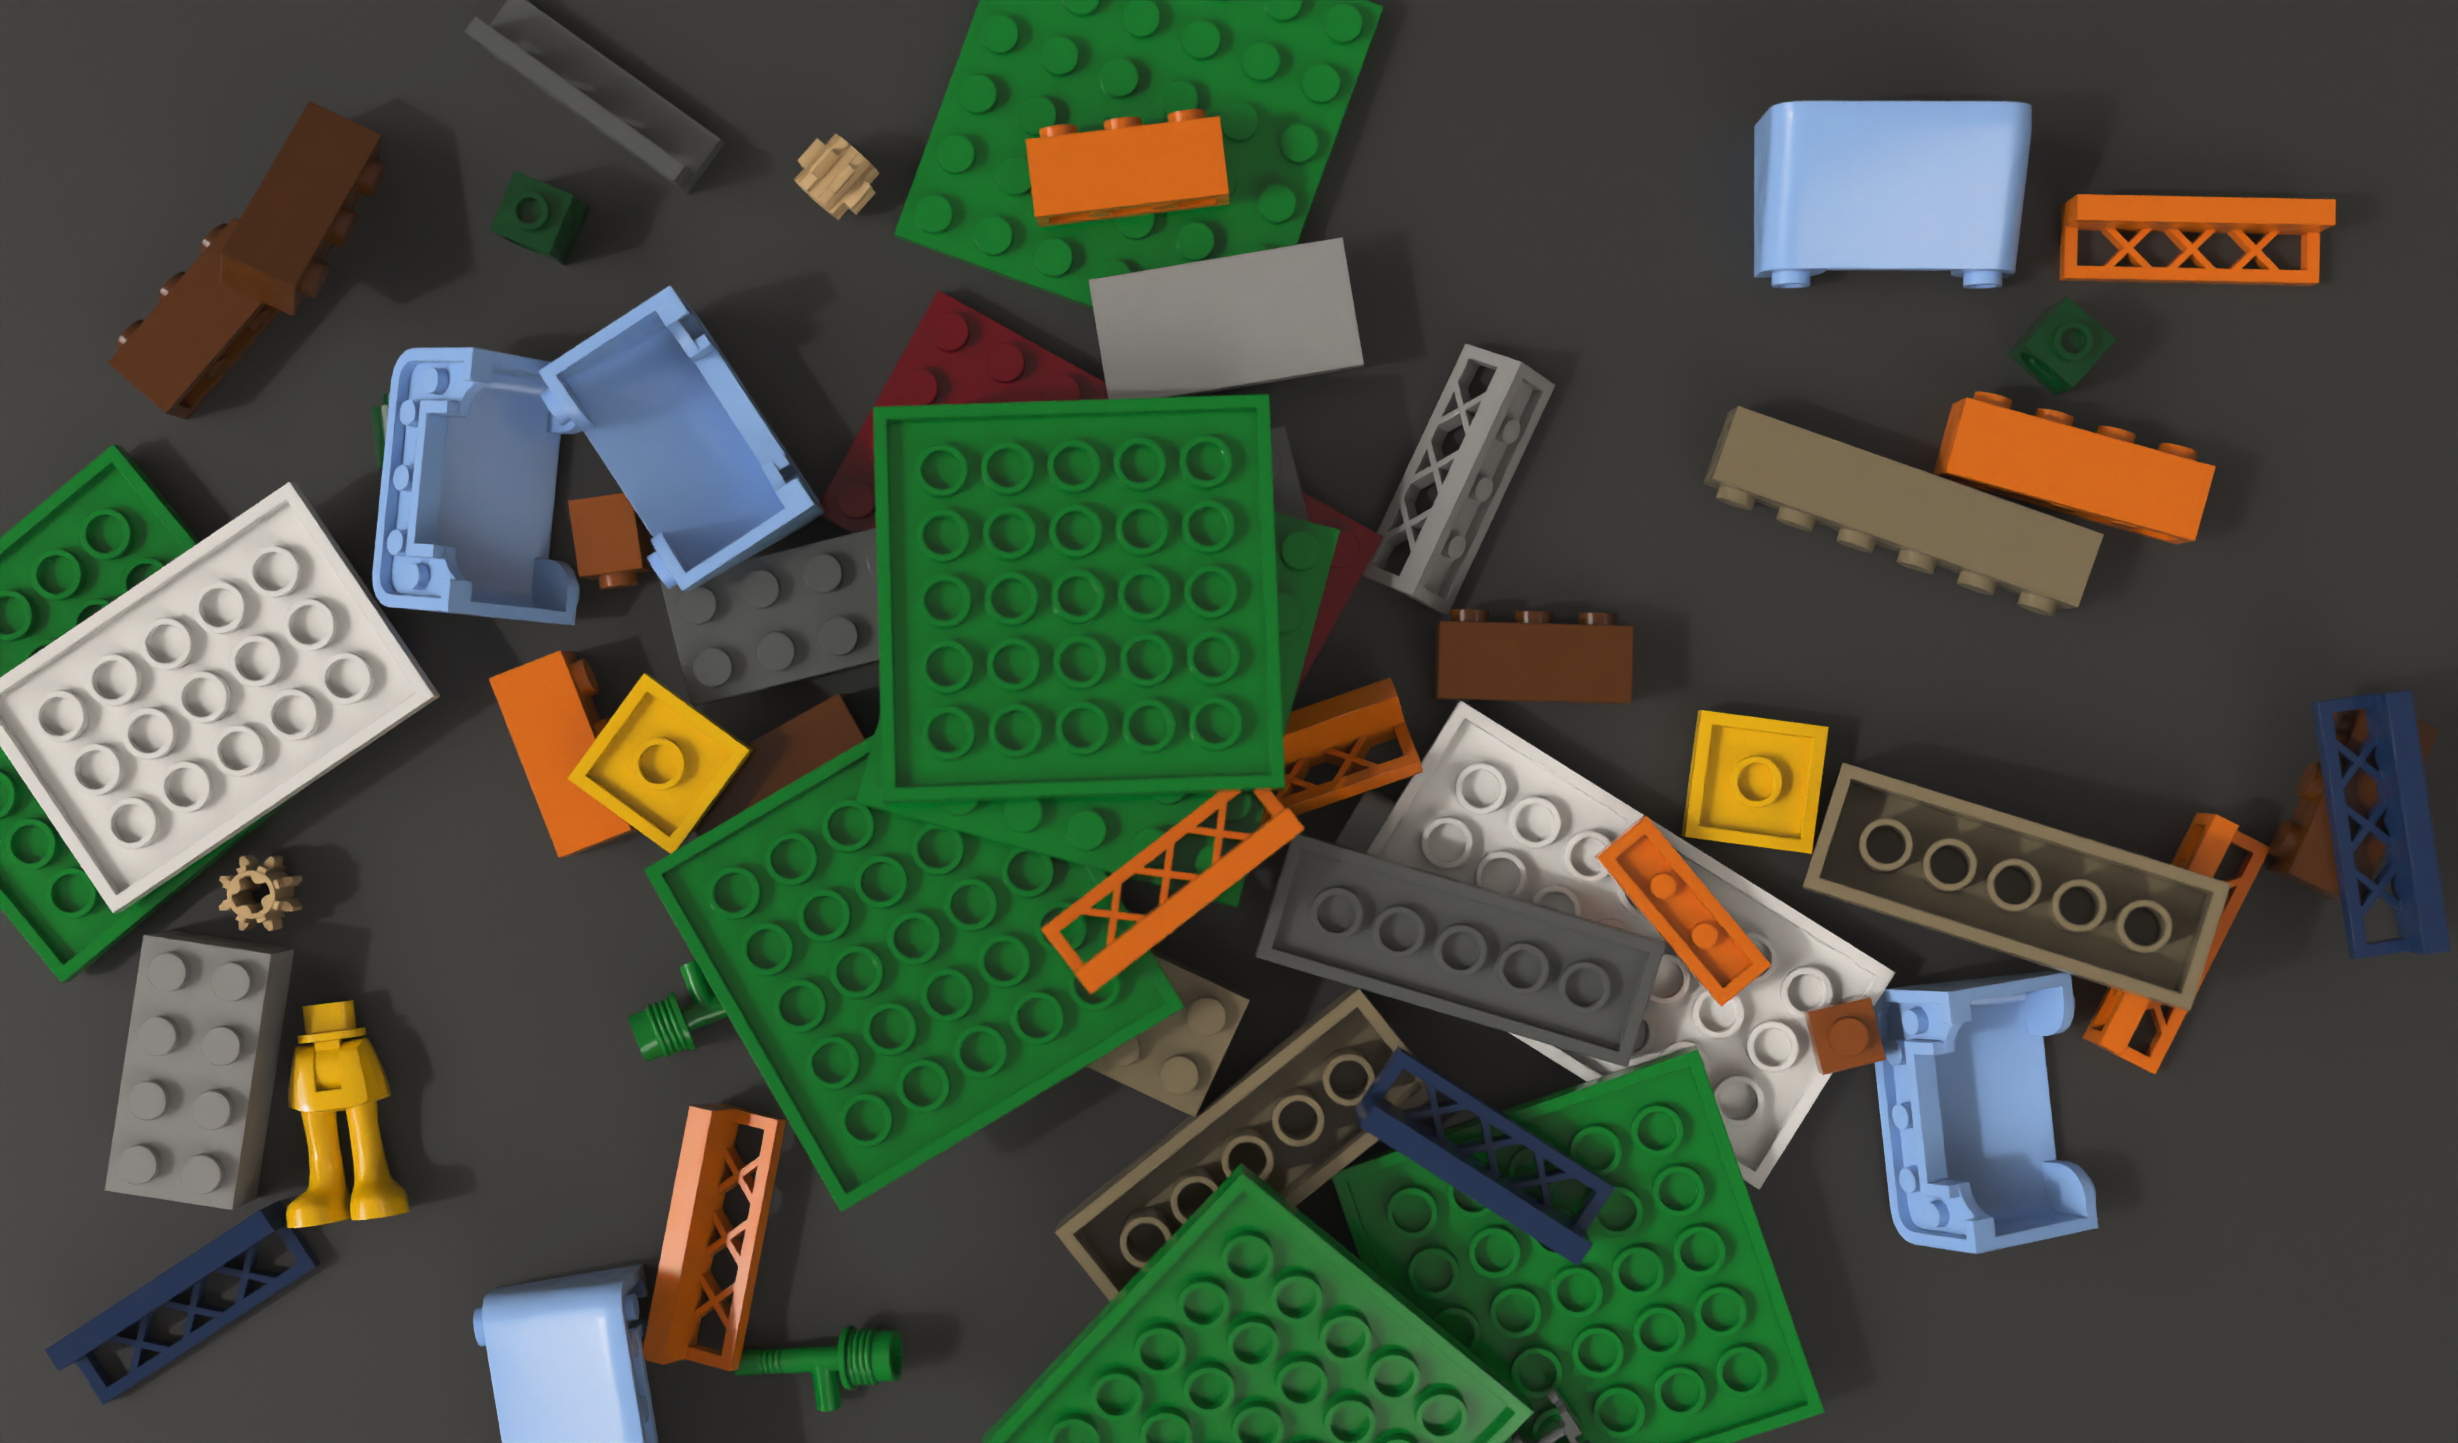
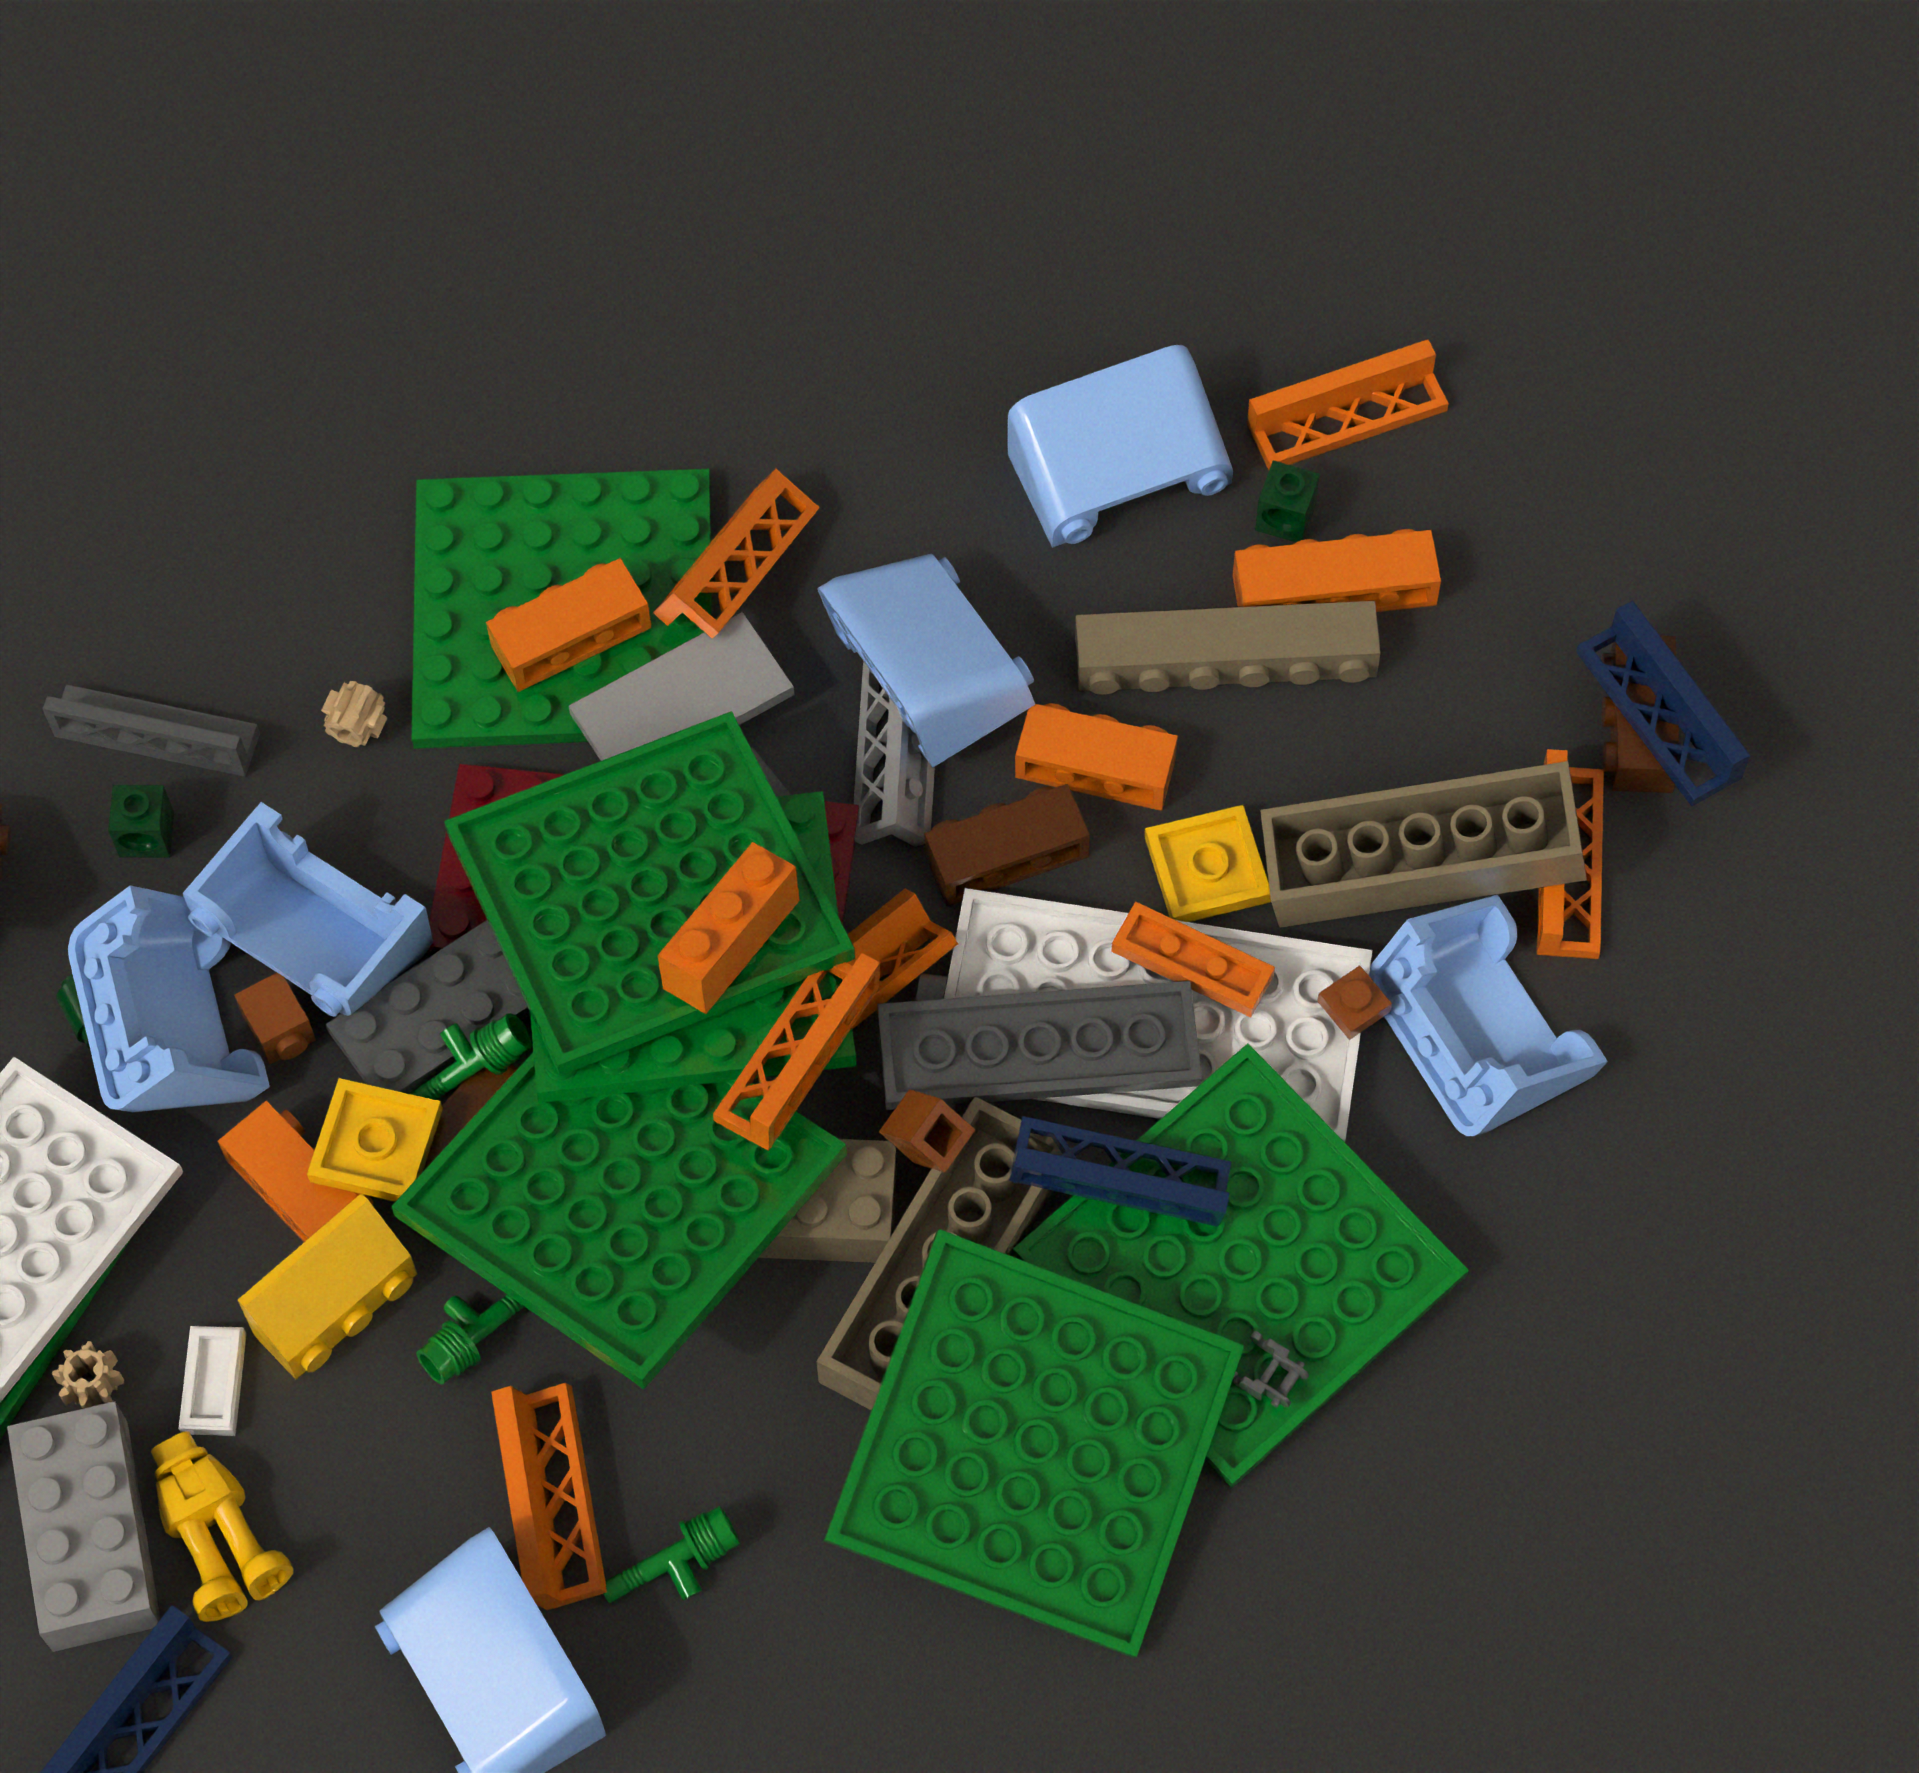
camera: 25 degrees left, 25 degrees down
(399, 944) = (212, 1380): none -> white tile
(553, 910) = (328, 1288): none -> yellow slope
(829, 702) = (491, 1047): none -> green piece
(1144, 716) = (729, 927): none -> orange brick
(1285, 1019) = (927, 1130): none -> dark orange brick
(1353, 136) = (723, 548): none -> orange fence
(1540, 386) = (929, 652): none -> light blue windscreen
(1687, 588) = (1096, 755): none -> orange brick

